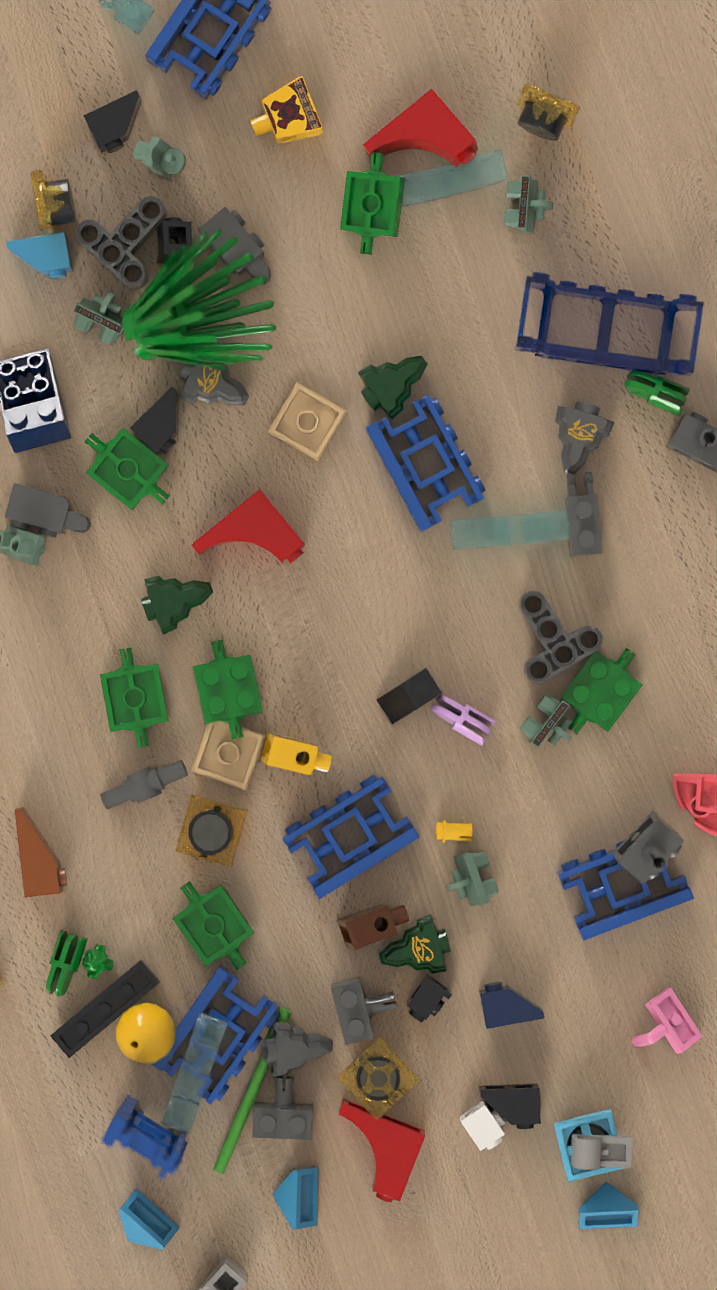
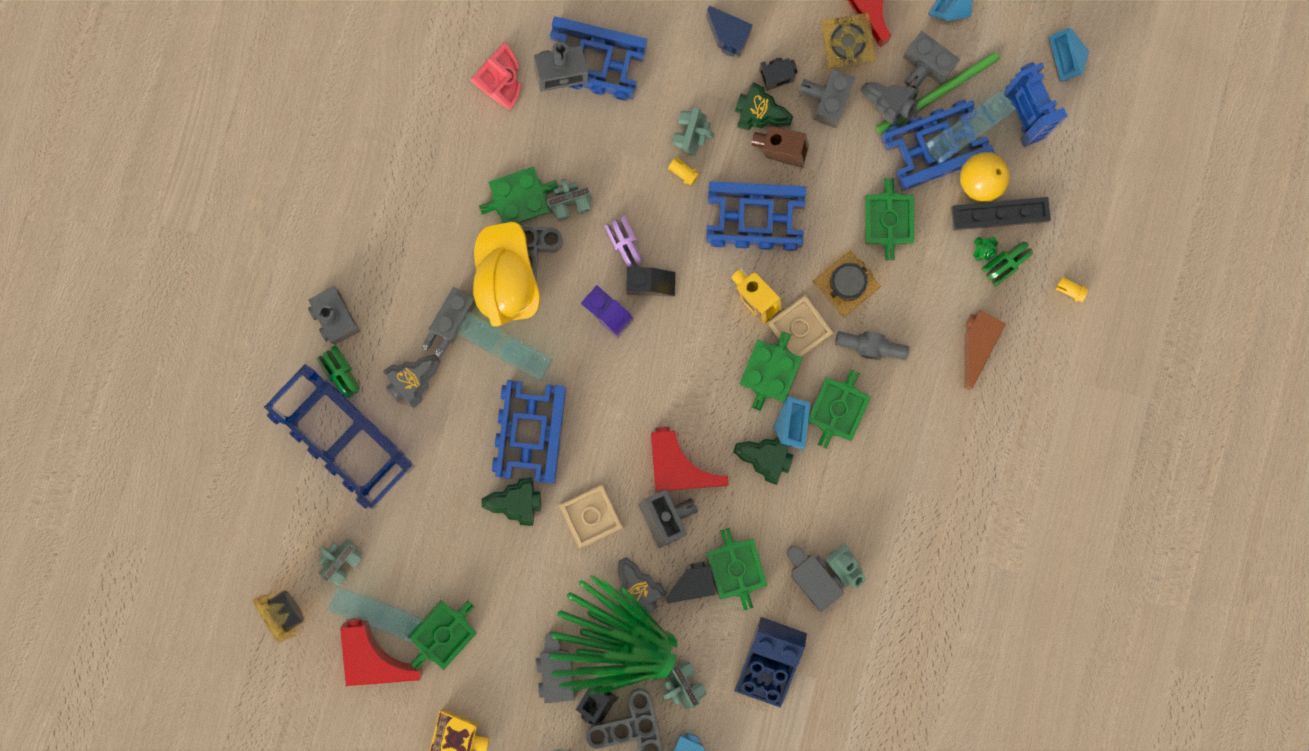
camera: 145 degrees left, 5 degrees down
(170, 651) = (793, 422): none -> dark azure slope
(232, 469) = (664, 517): none -> dark grey brick
(432, 635) = (607, 311): none -> dark purple brick
(558, 597) = (504, 277): none -> yellow piece

